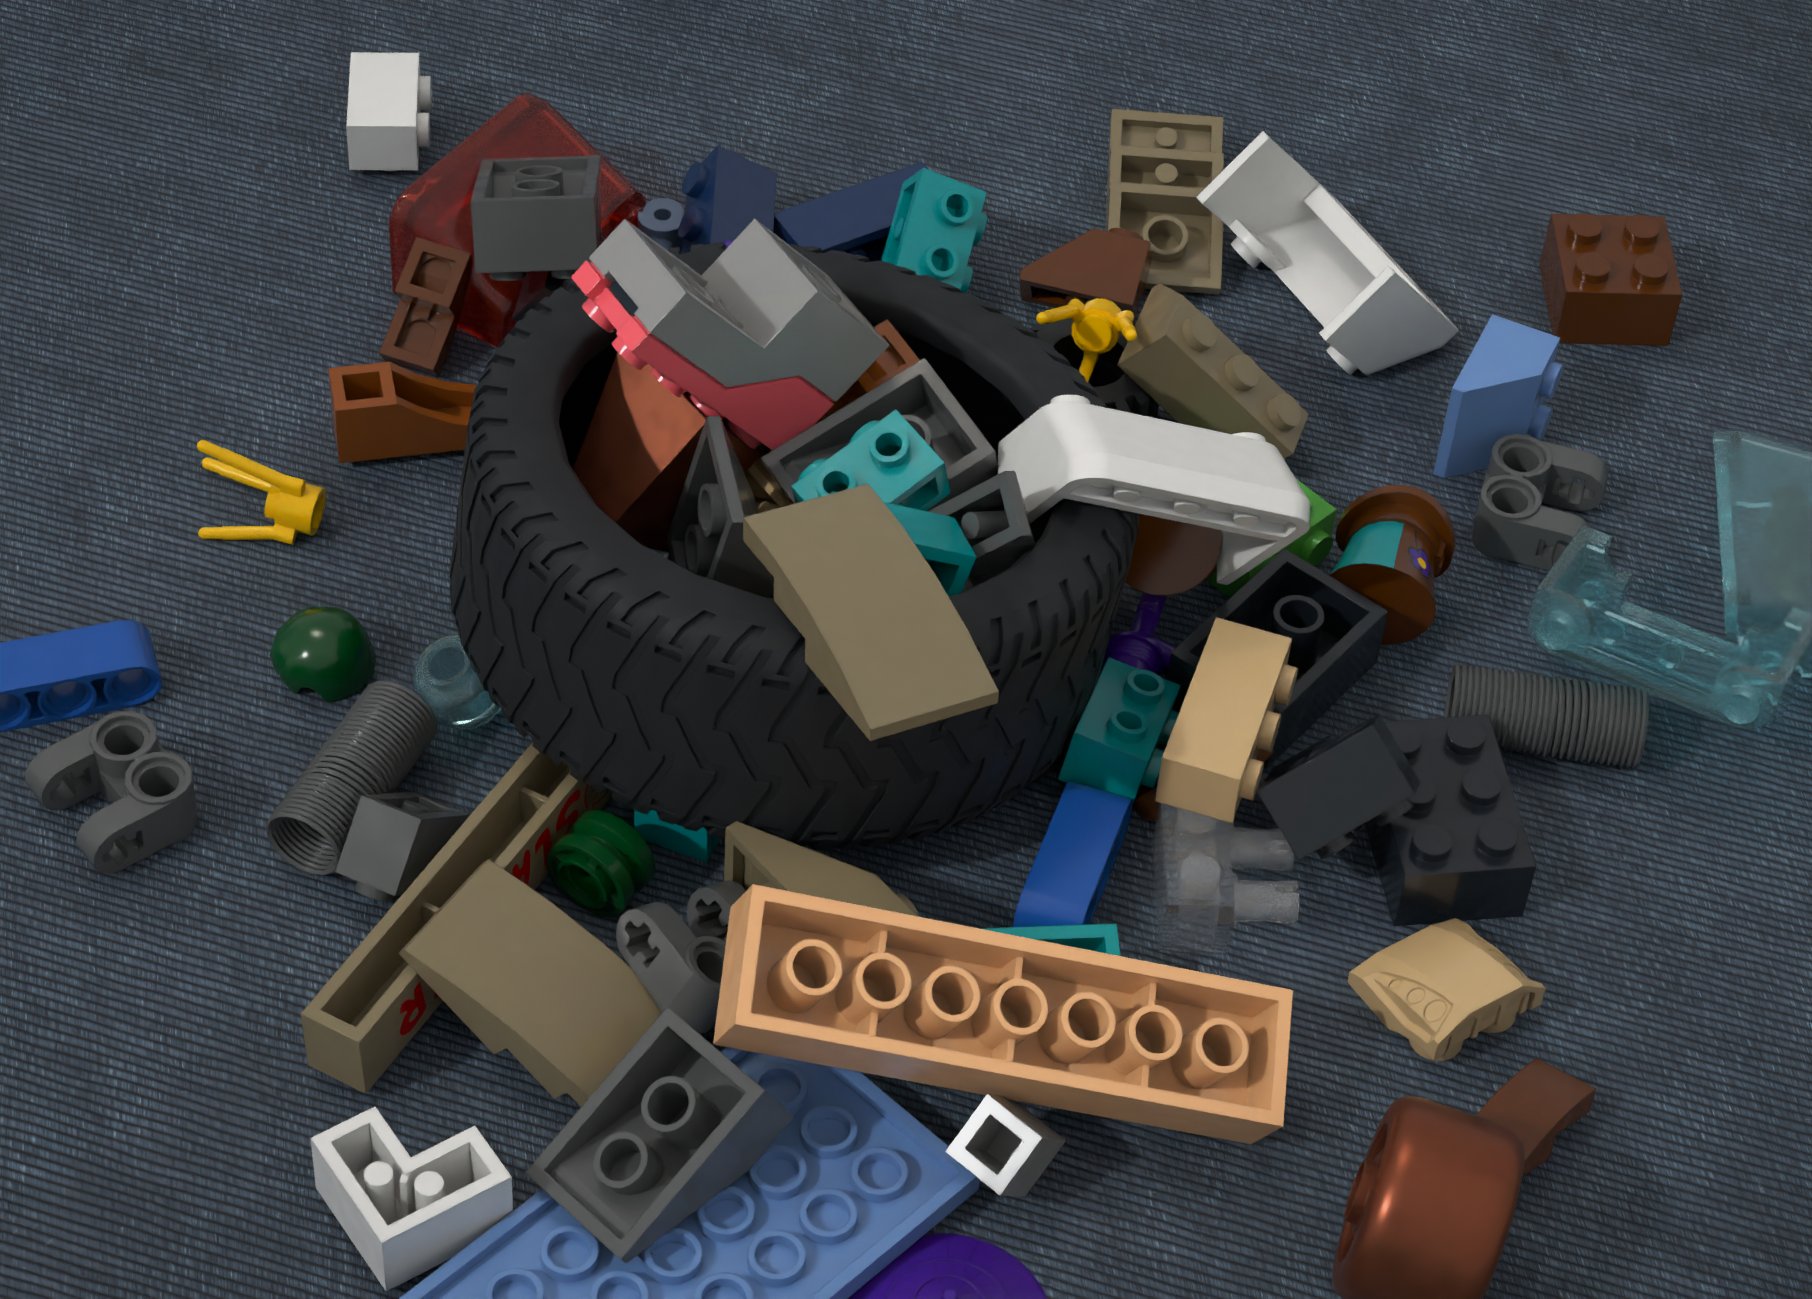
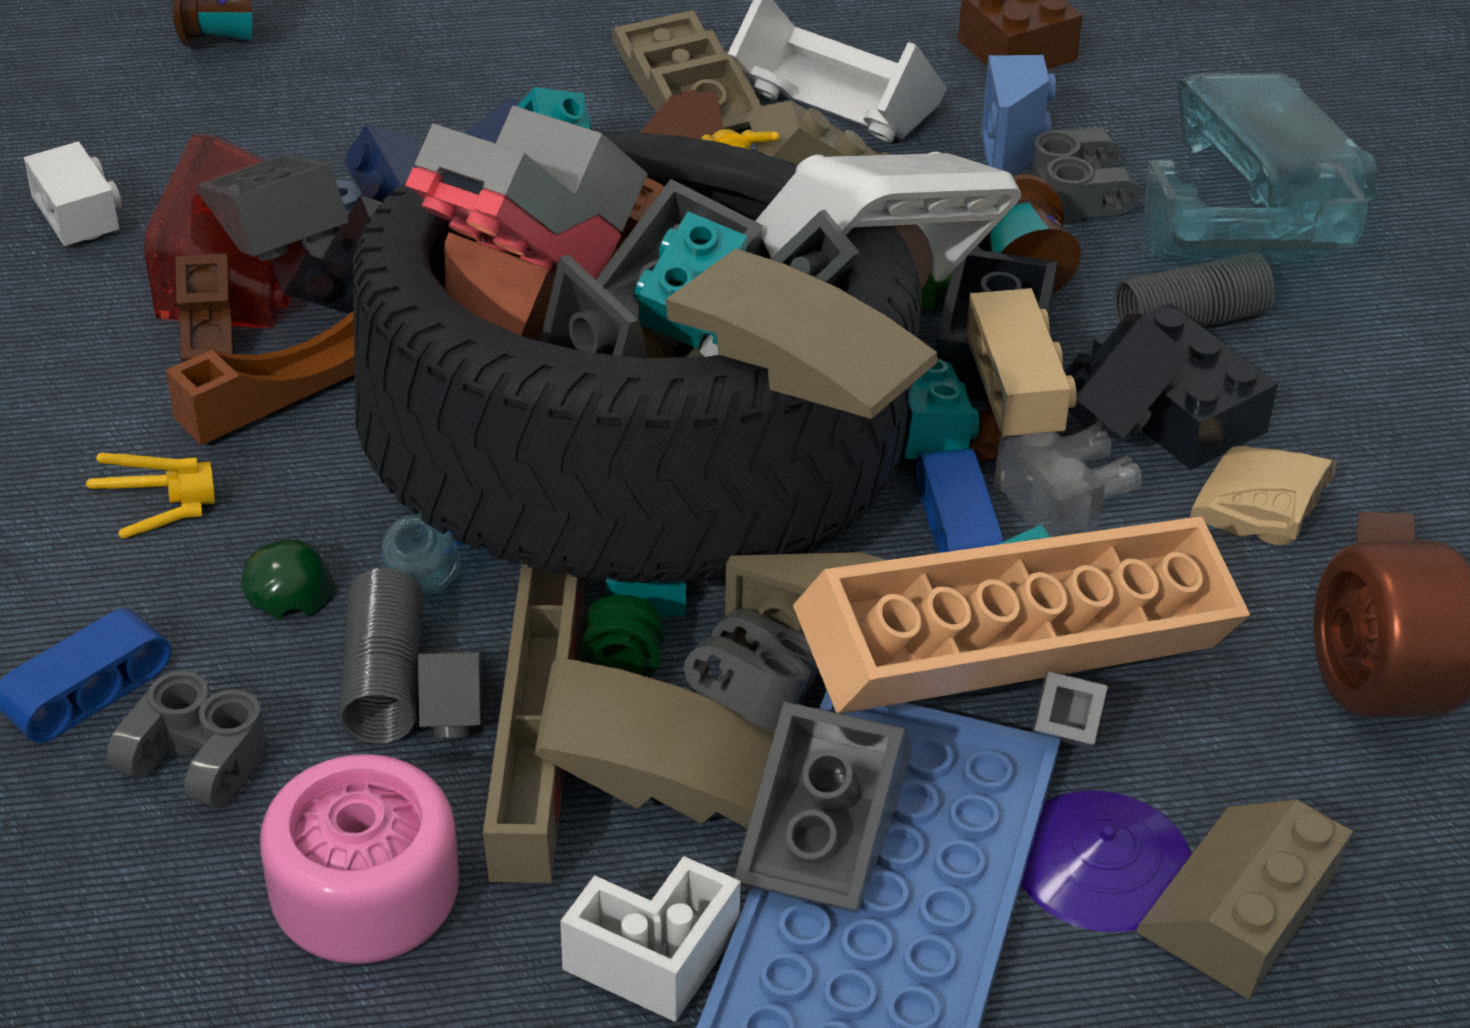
camera: 25 degrees left, 5 degrees down
(181, 986) = (360, 858): none -> bright pink wheel

